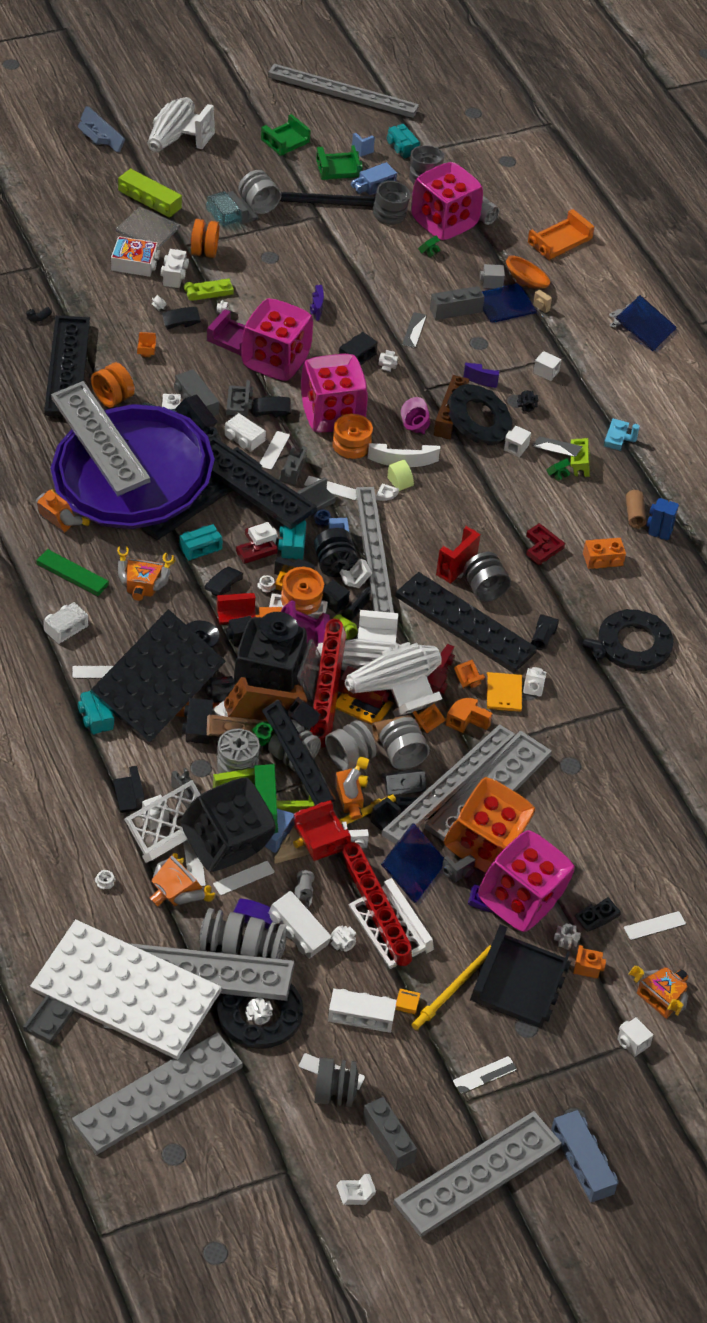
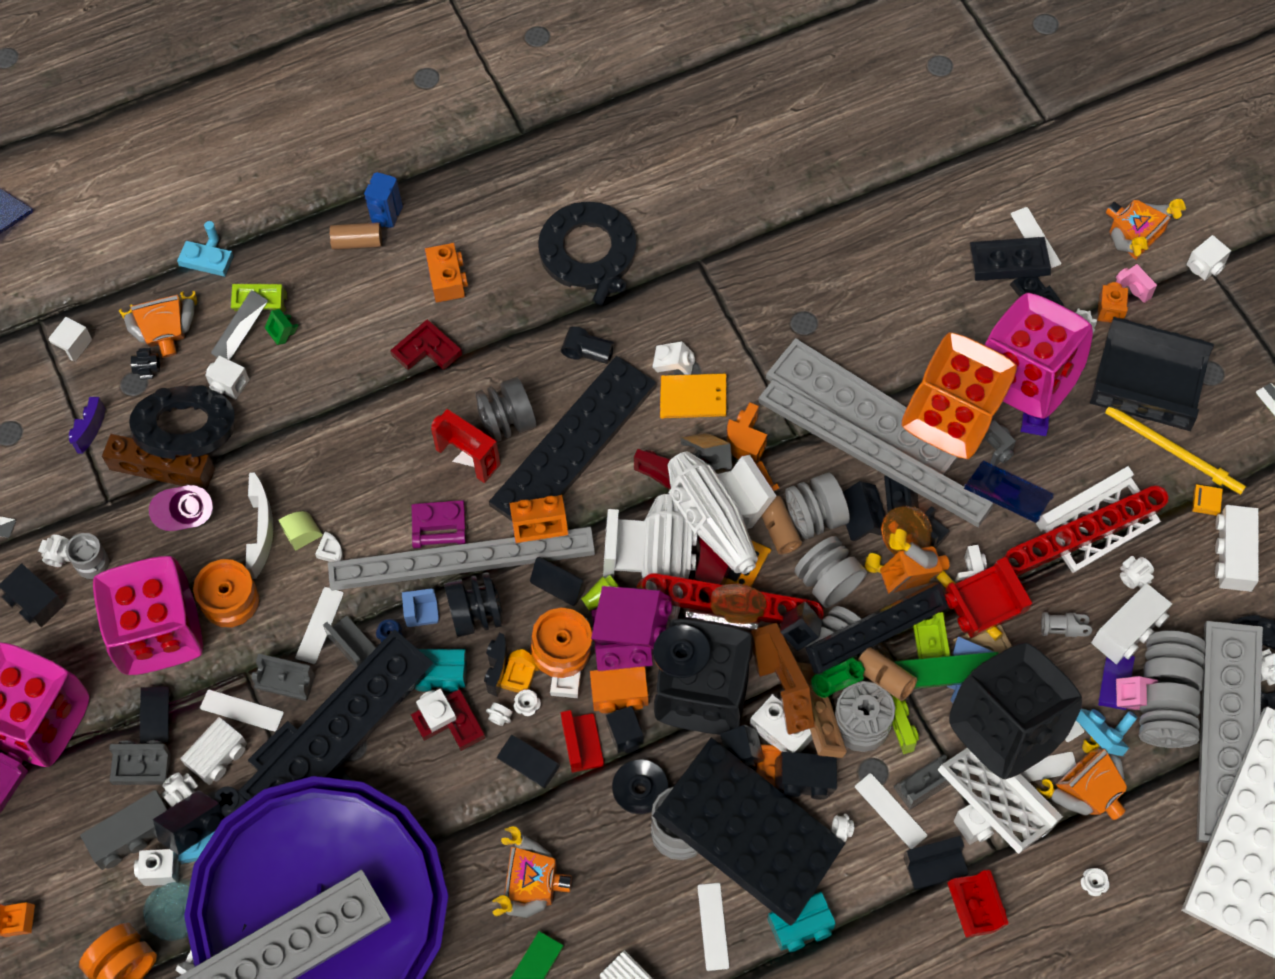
camera: 85 degrees left, 15 degrees up
(96, 806) = (978, 904): none -> red bracket
(160, 741) = (842, 827): none -> white plate
(164, 778) = (891, 811): none -> white sticker
(200, 542) = (451, 799): teal brick -> none
(213, 893) = (1105, 736): none -> medium azure plate
(221, 415) = (178, 788): none -> white gear
(241, 906) = (1132, 692): none -> bright pink panel
(259, 569) = (499, 714): none -> white plate
(262, 755) = (887, 674): none -> medium nougat pin
(314, 615) = (631, 616): none -> magenta panel
(317, 670) = (738, 603): none -> clear orange tile
(336, 596) = (545, 600): black brick -> none
(357, 575) = (505, 578): white bracket -> none
(381, 793) = (910, 520): none -> clear orange tile
(383, 373) = (87, 555): none -> light grey wheel
(398, 587) = (539, 518): none -> orange brick
(408, 547) = (438, 517): none -> magenta plate
(451, 682) = (711, 449): none -> dark grey hinge
(468, 674) = (670, 435): orange bracket -> none
(561, 409) = (161, 321): none -> orange torso
(609, 981) = (1138, 281): none -> bright pink bracket
(627, 894) = (1010, 258): none -> black plate

